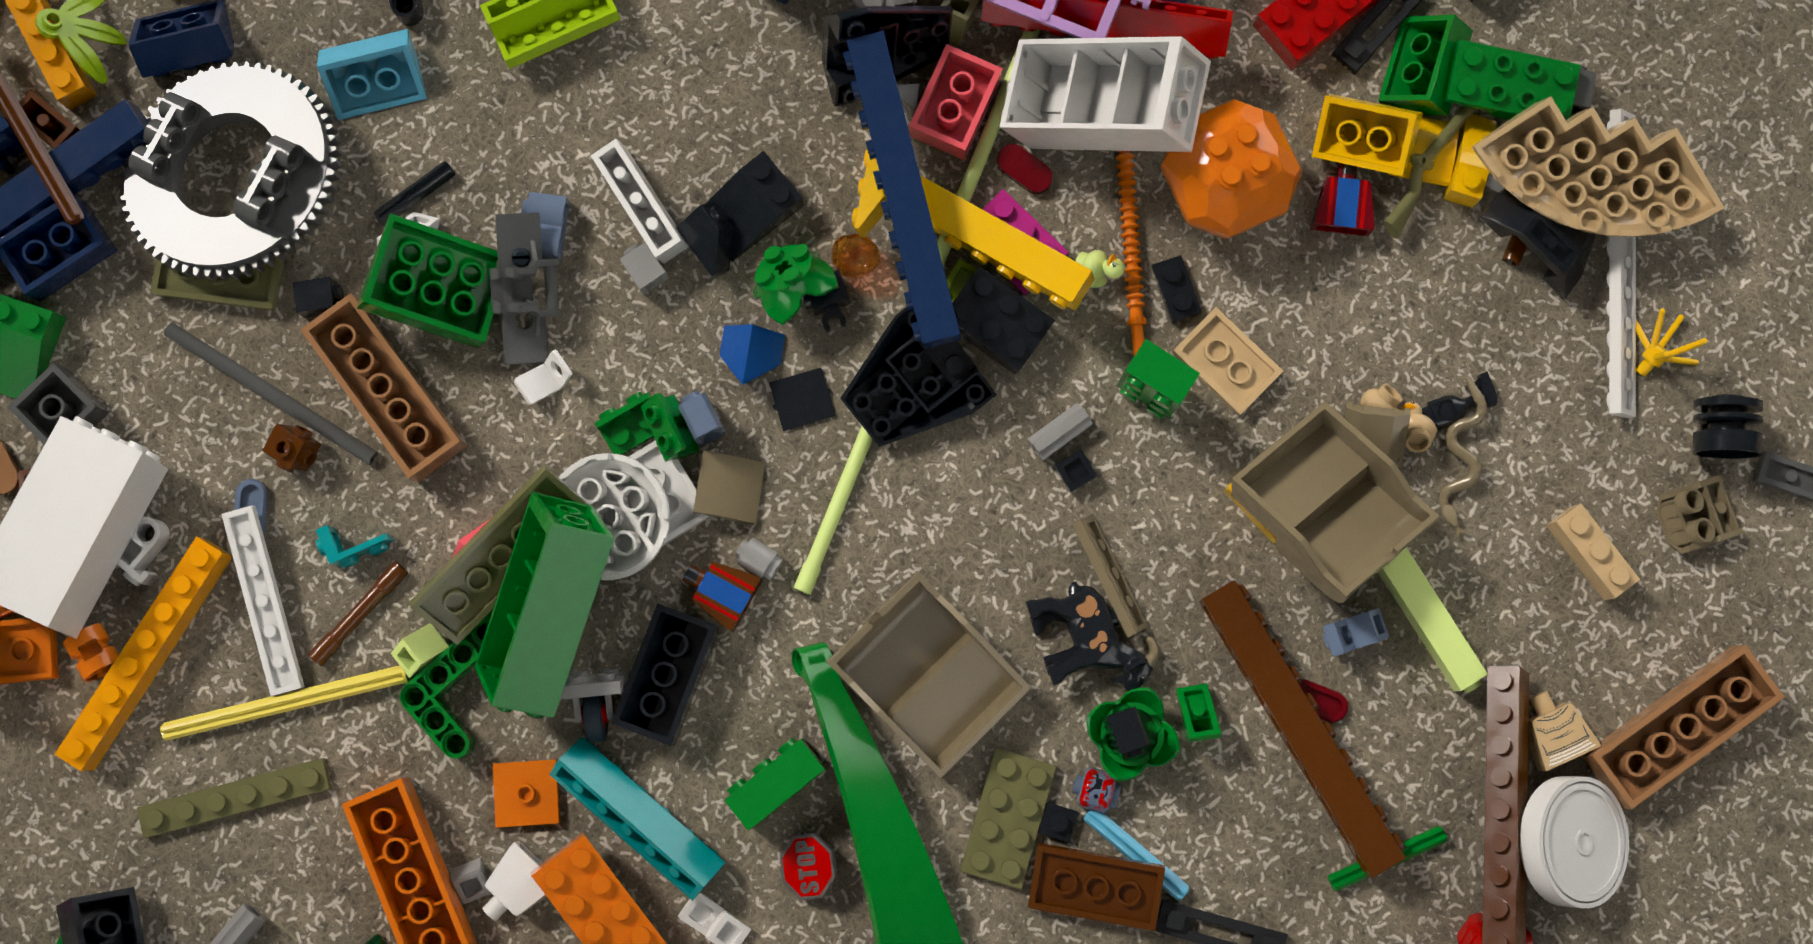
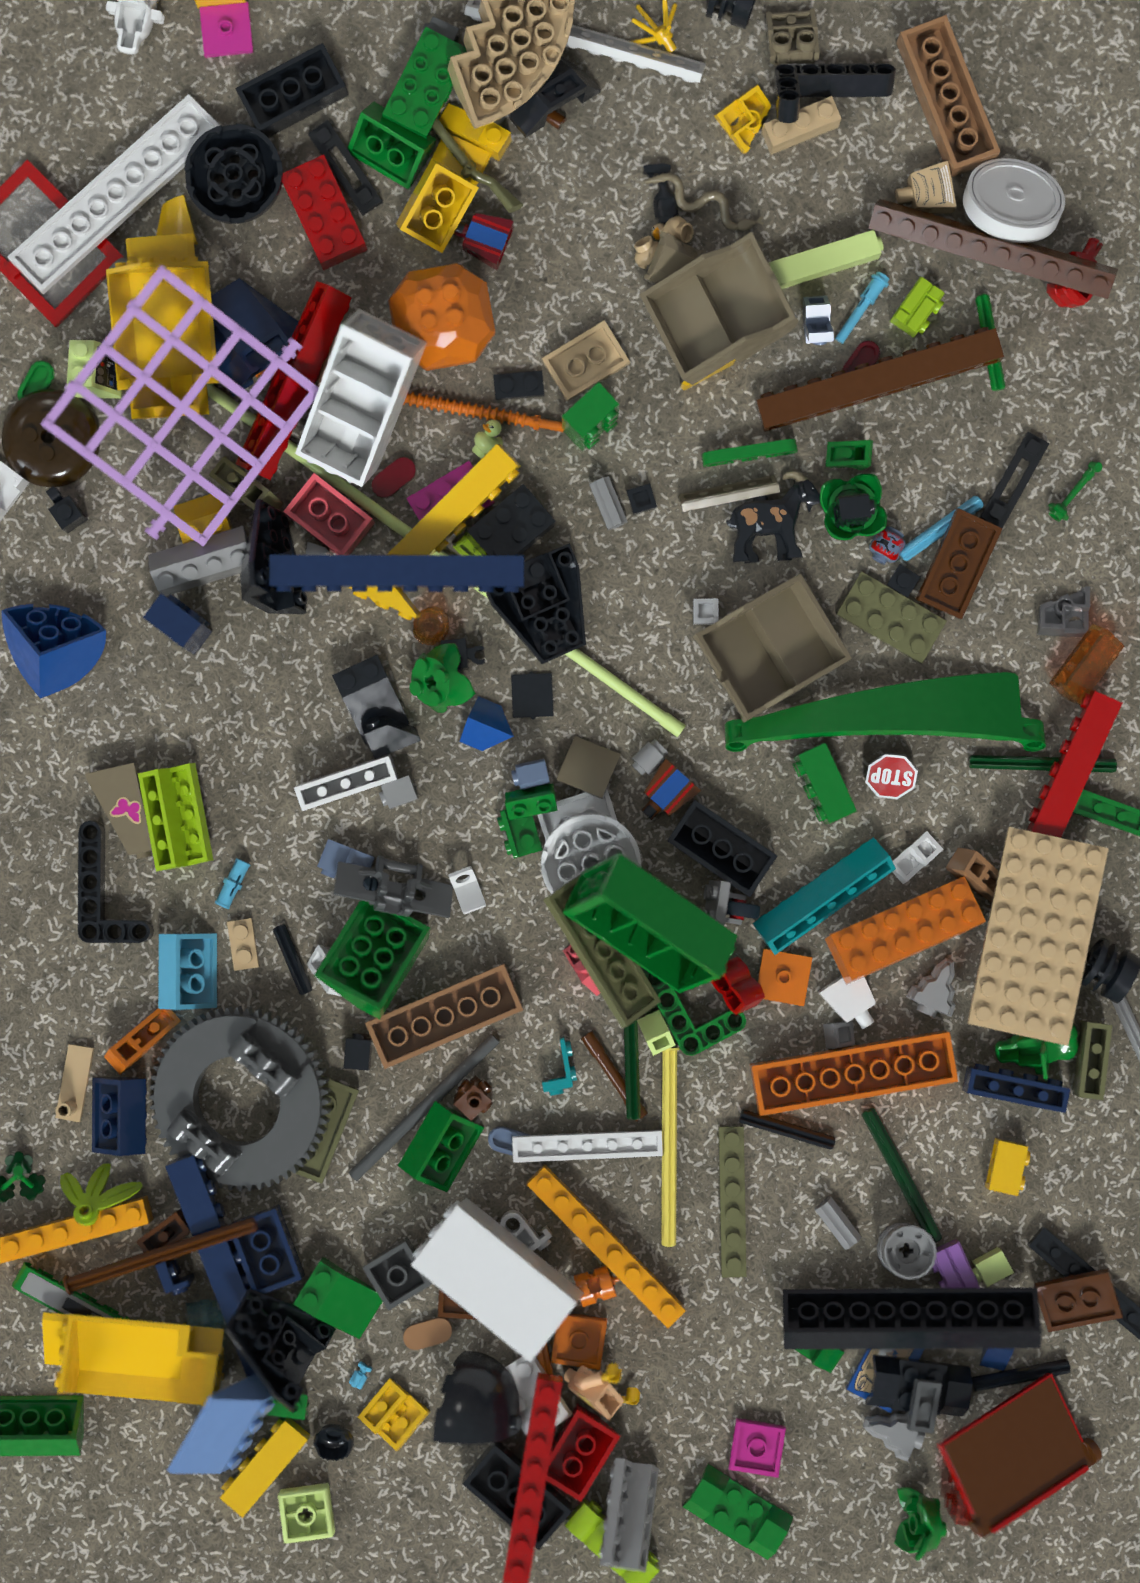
camera: 75 degrees left, 5 degrees up
(223, 423) = (440, 1147): none -> green slope
(278, 40) = (141, 1039): none -> orange slope
(337, 846) = (787, 1129): none -> black axle
(364, 633) = (632, 1071): none -> dark green axle
(419, 131) = (243, 944): none -> tan plate
(489, 101) = (232, 883): none -> medium azure pin
(498, 737) = (738, 987): none -> red brick
(957, 583) = (705, 611): none -> white plate
(1167, 589) = (749, 452): none -> green beam
(1403, 690) = (868, 297): none -> medium azure pin
(1405, 754) = (917, 307): none -> lime brick
(1592, 487) = (750, 110): none -> yellow slope
(1658, 571) = (828, 80): none -> black beam

